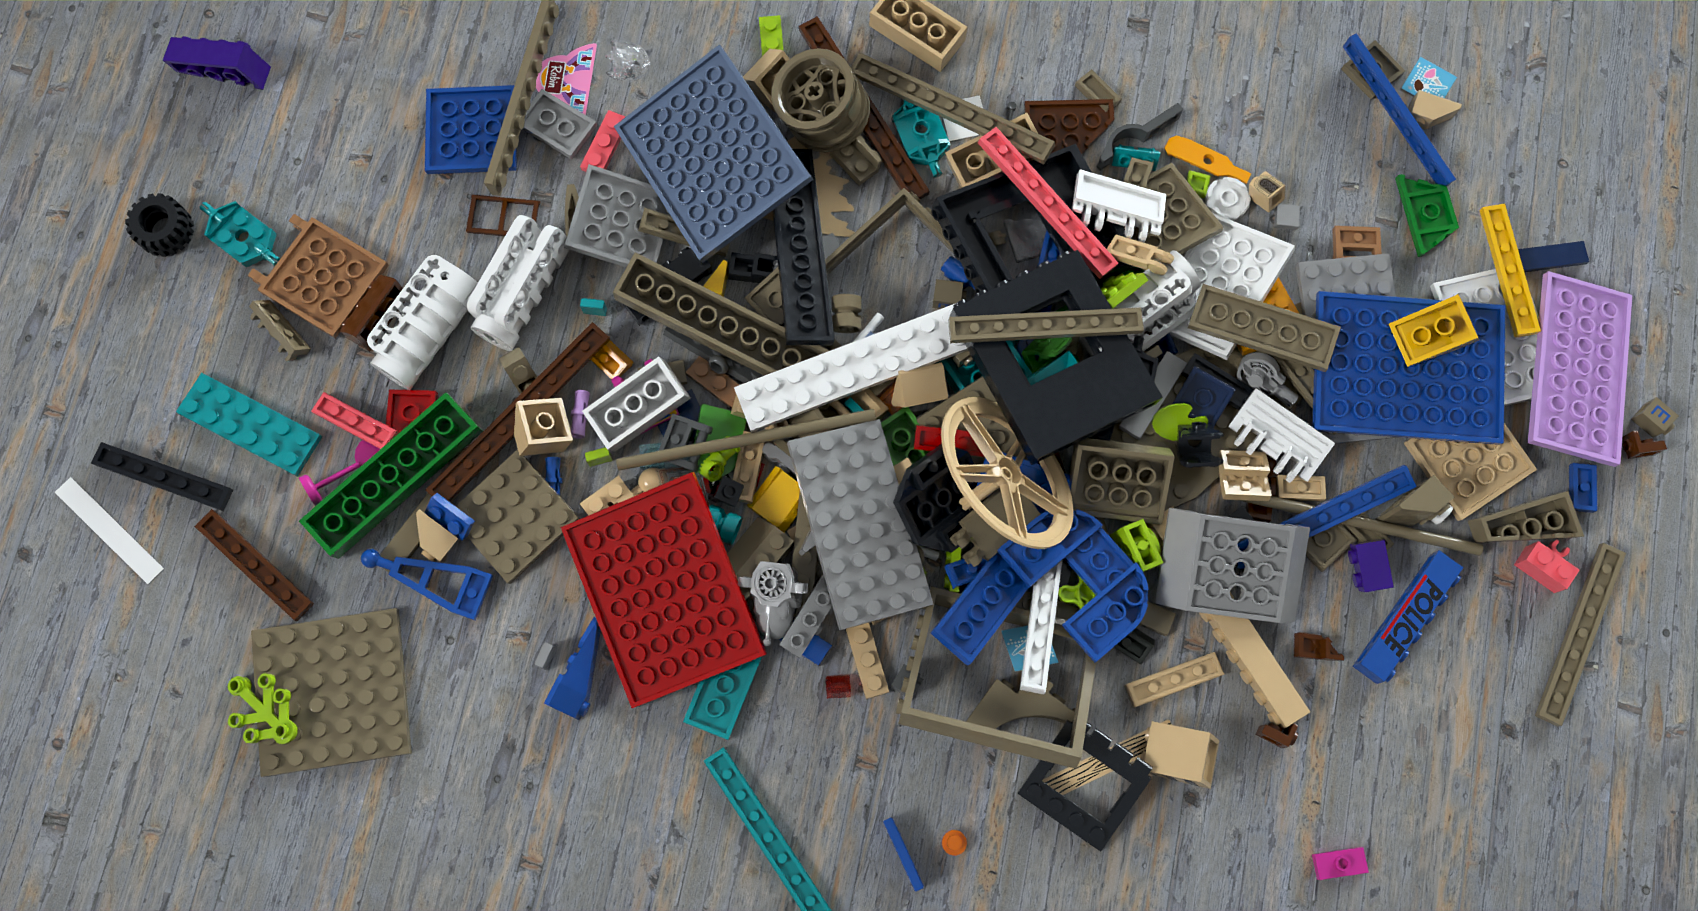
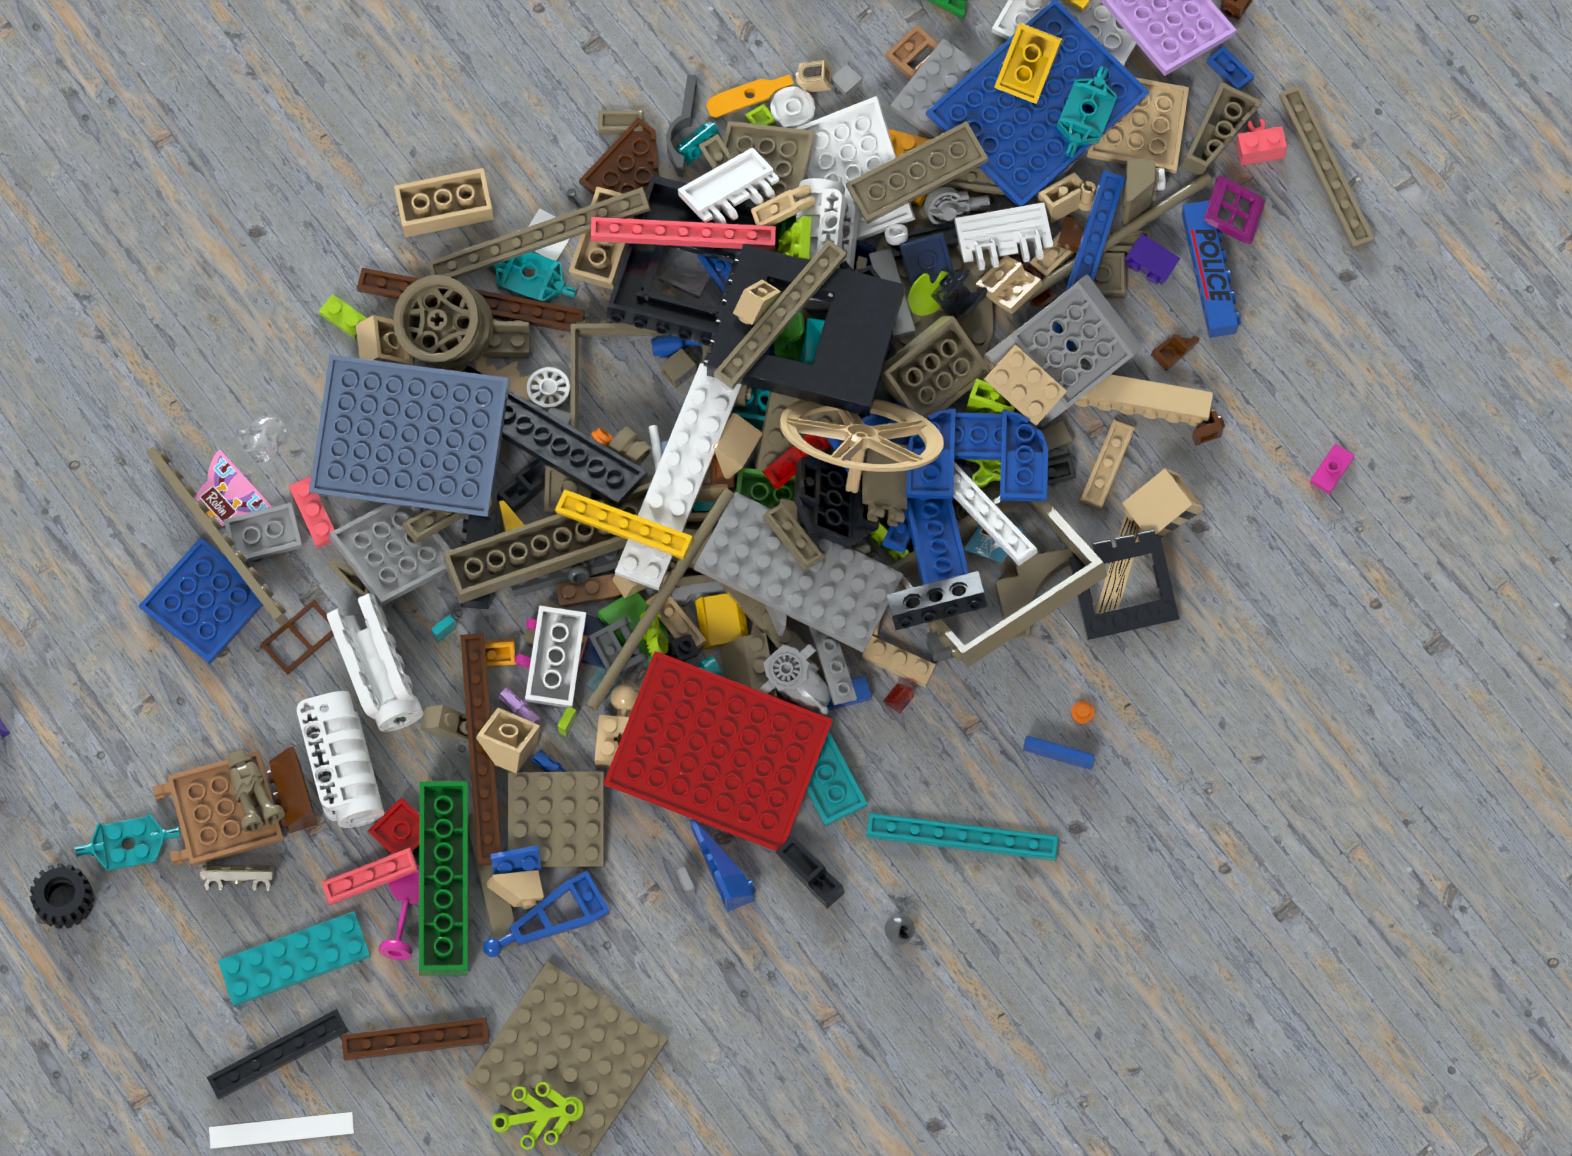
camera: 45 degrees left, 5 degrees down
(349, 274) = (247, 781): none -> dark tan piece
(635, 744) = (810, 872): none -> black slope
(646, 856) = (899, 929): none -> dark grey piece
(774, 361) = (624, 524): none -> yellow plate
(836, 286) = (602, 437): none -> orange plate
(846, 218) = (548, 388): none -> white wheel
(881, 494) = (793, 536): none -> dark tan tile
(926, 639) = (937, 600): none -> black brick
(1037, 297) = (755, 302): none -> tan slope
(1172, 561) = (1025, 385): none -> tan plate
(1201, 356) = (896, 234): none -> white tile
(1329, 486) = (1070, 234): none -> reddish brown slope
(1356, 456) = (1067, 197): none -> tan hinge
(1422, 412) = (1082, 127): none -> teal plate
(1481, 613) = (1252, 217): none -> magenta piece

